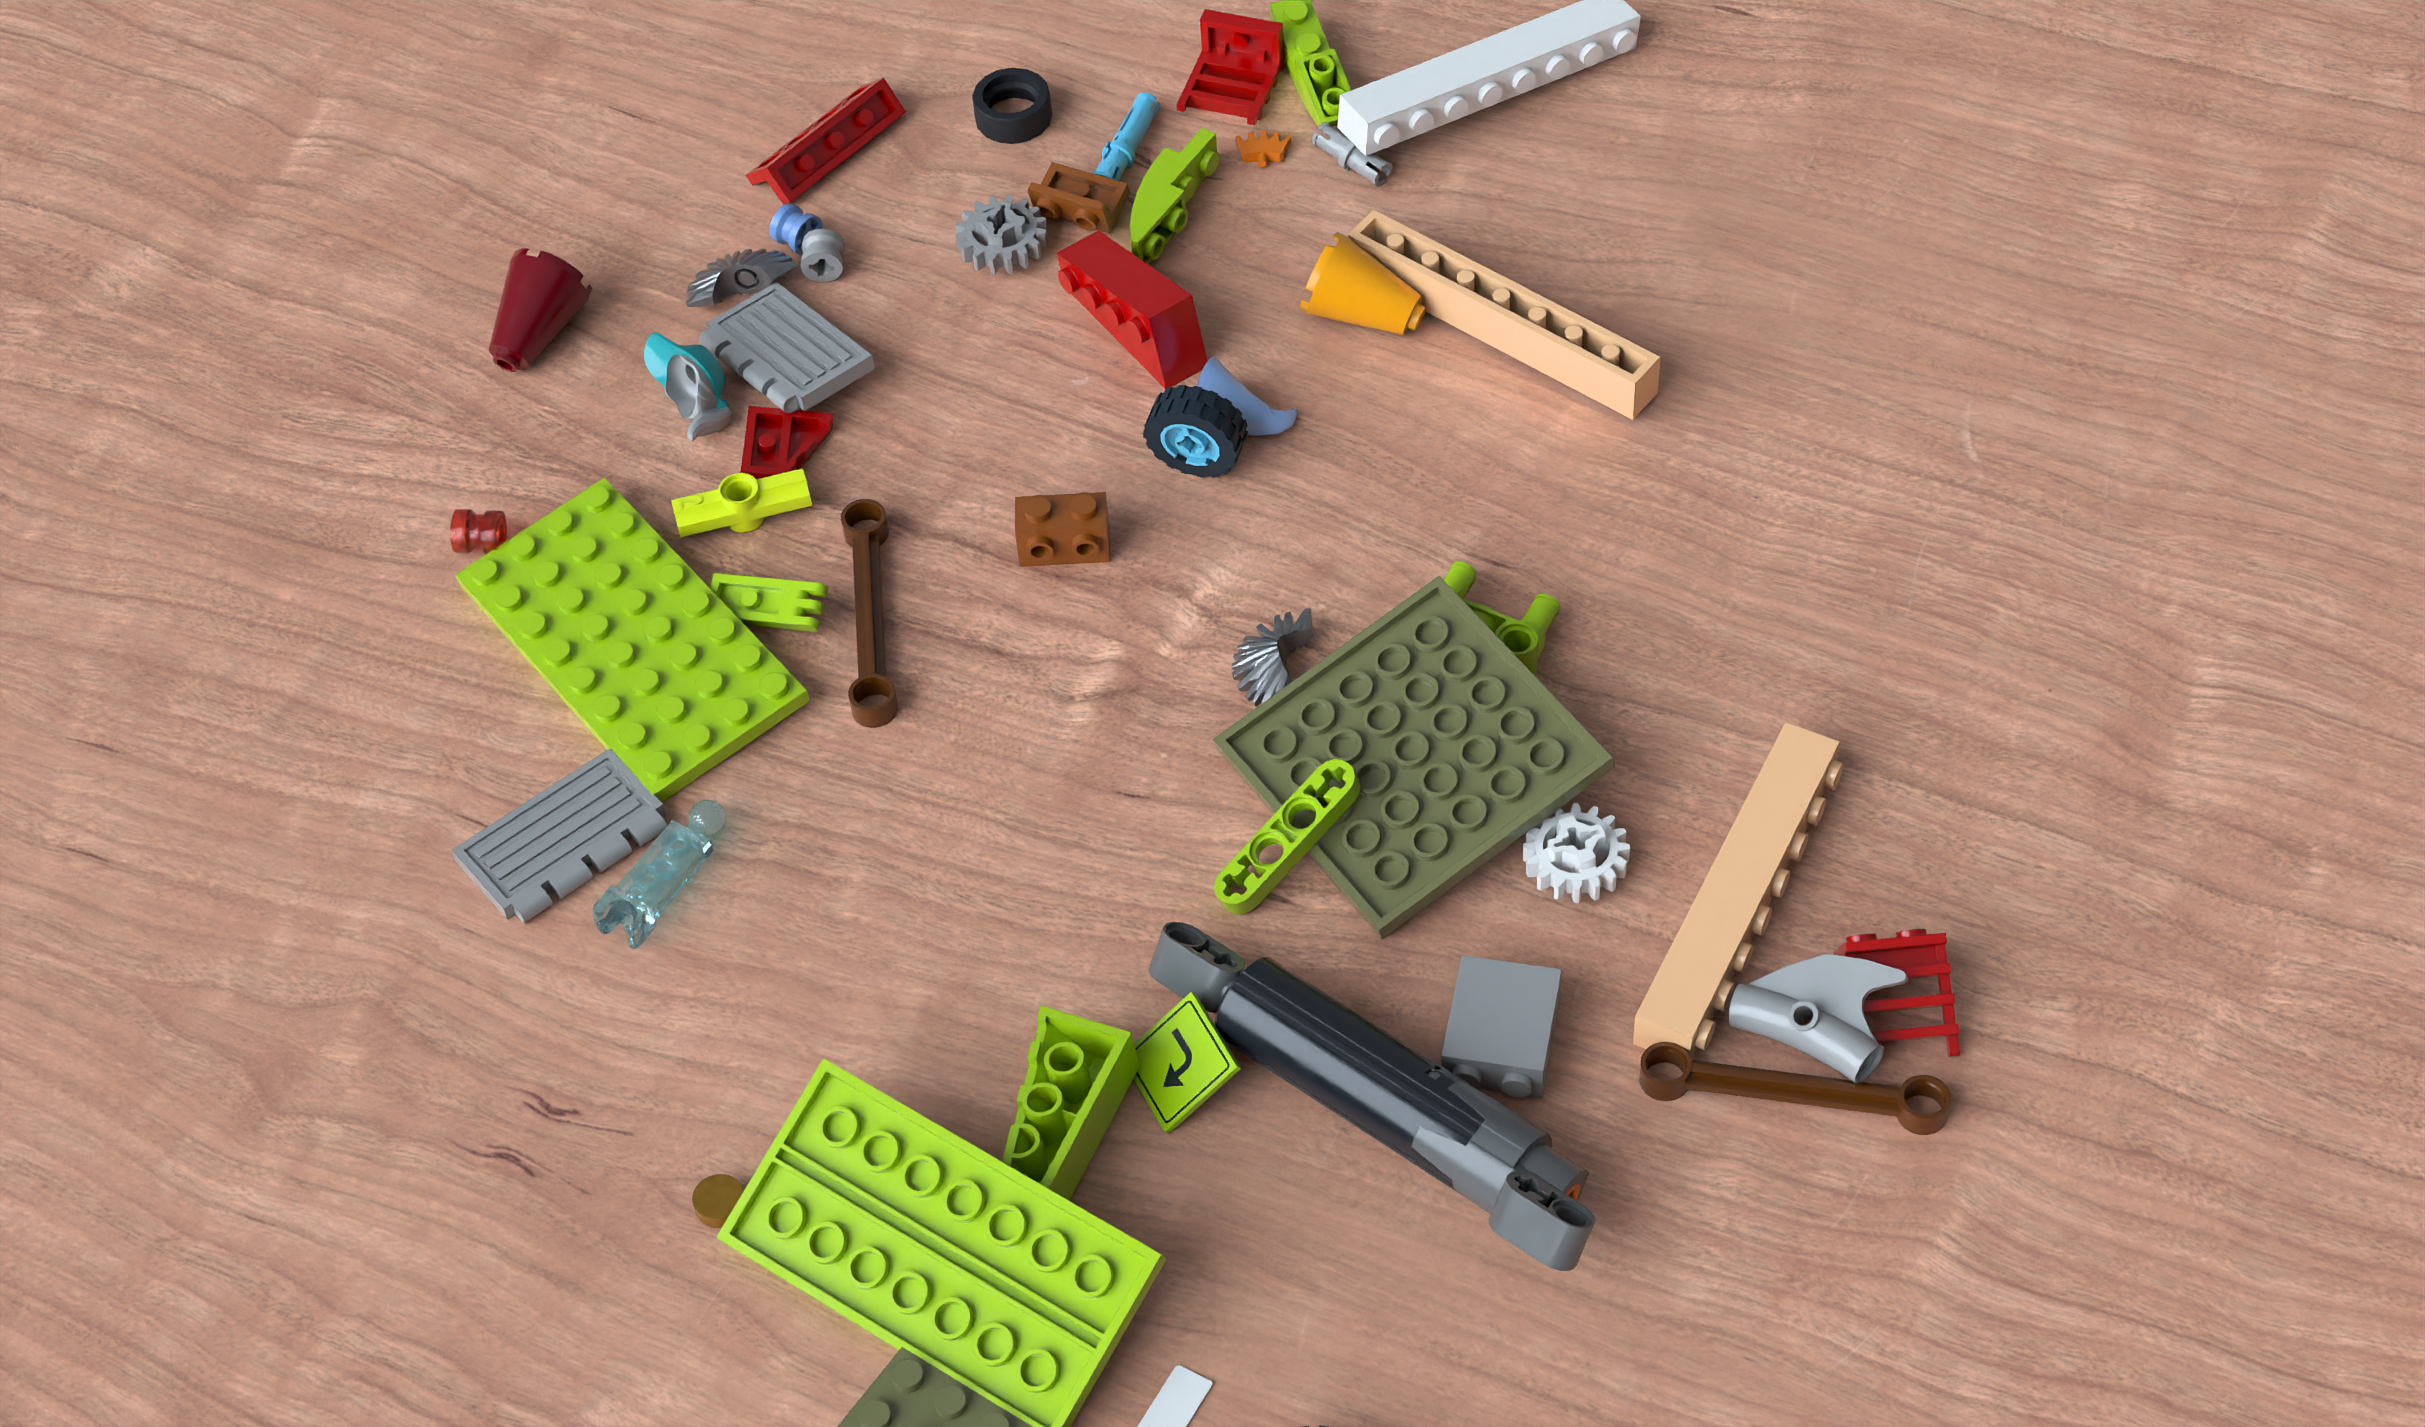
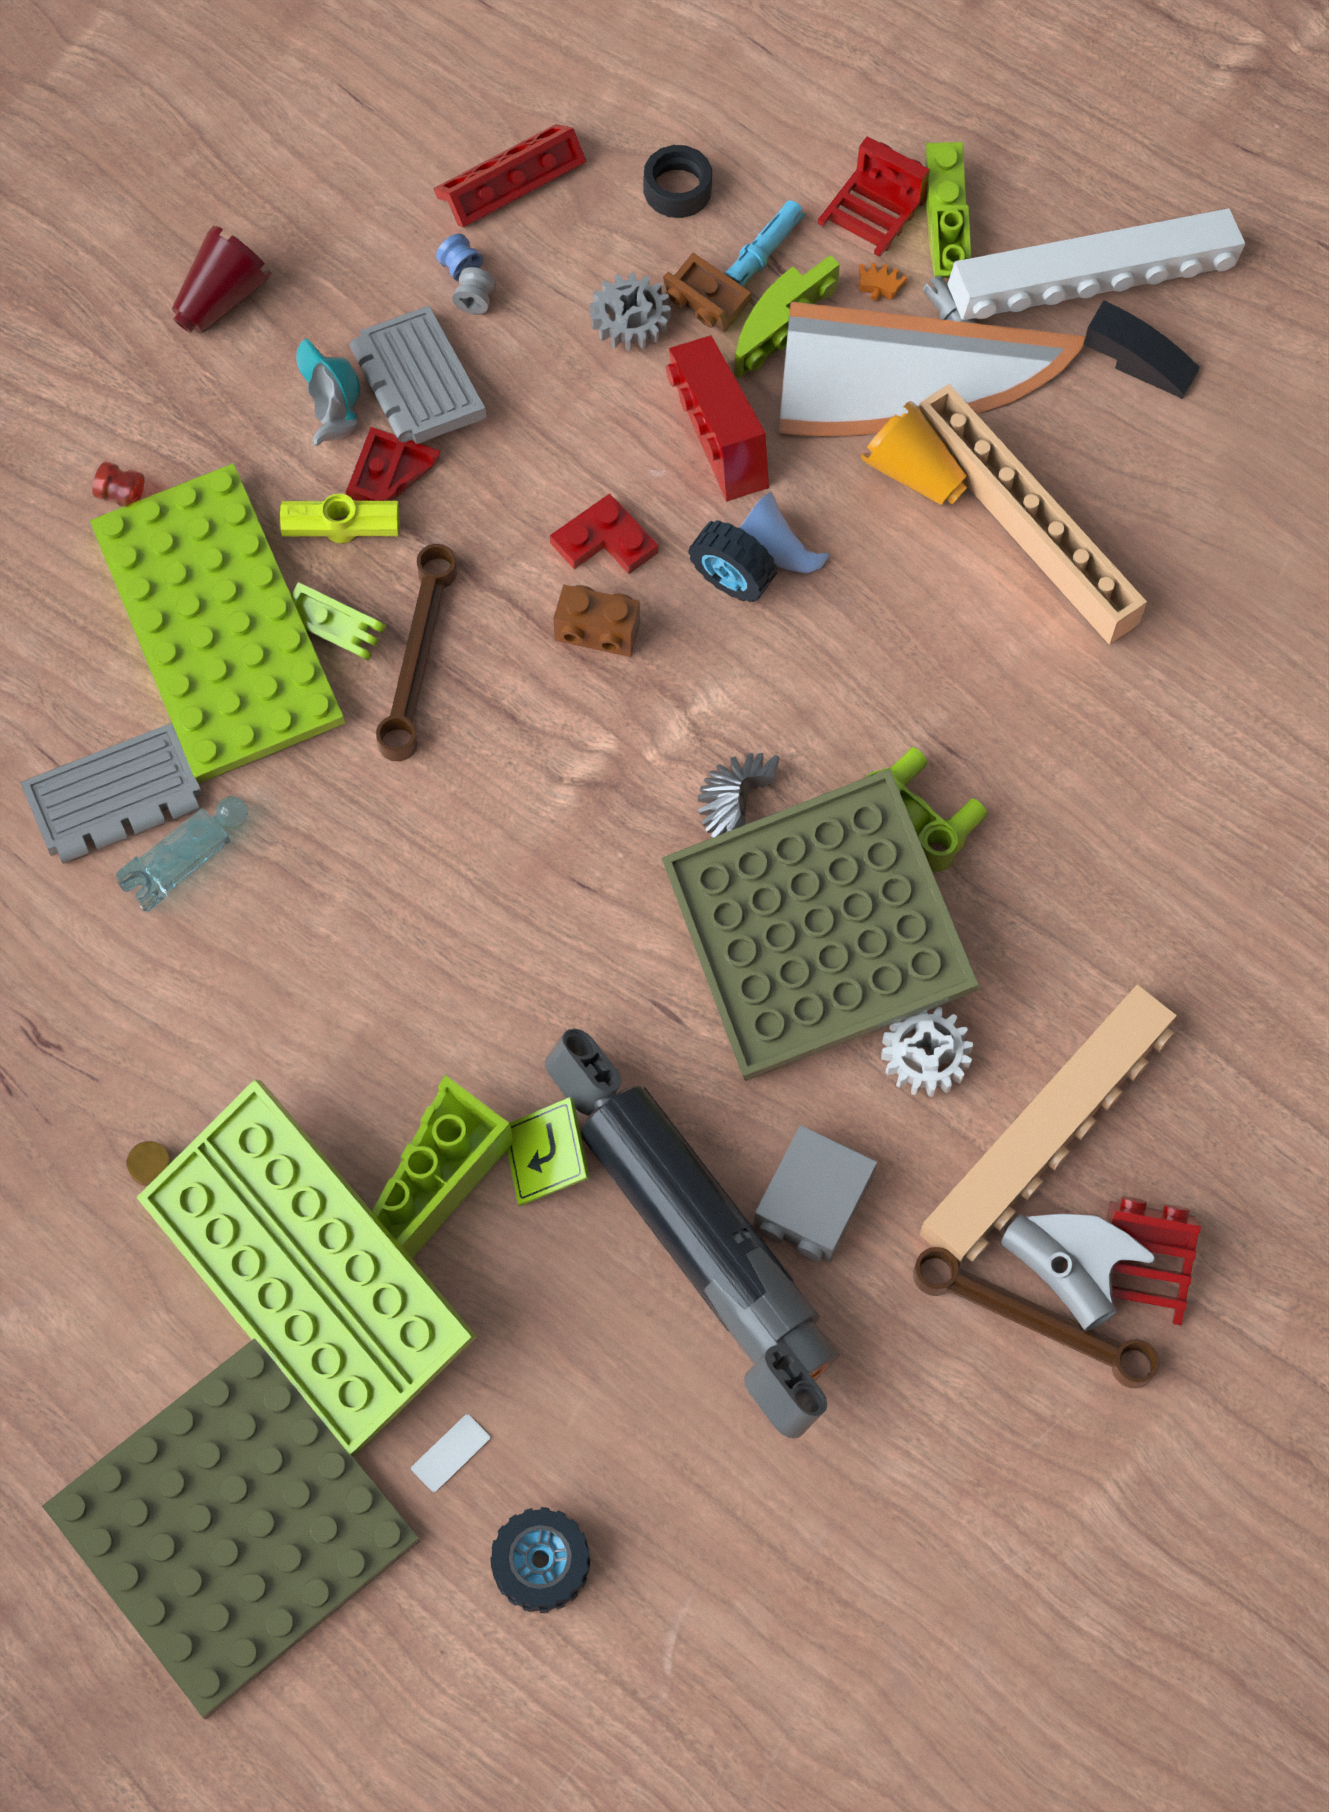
camera: 10 degrees right, 15 degrees up
(740, 273) = (400, 287): flat silver hair -> none
(1042, 443) = (607, 527): none -> red plate
(1266, 227) = (860, 367): none -> clear sticker
(1295, 841) = (690, 963): lime beam -> none
(1564, 140) = (1140, 350): none -> black slope

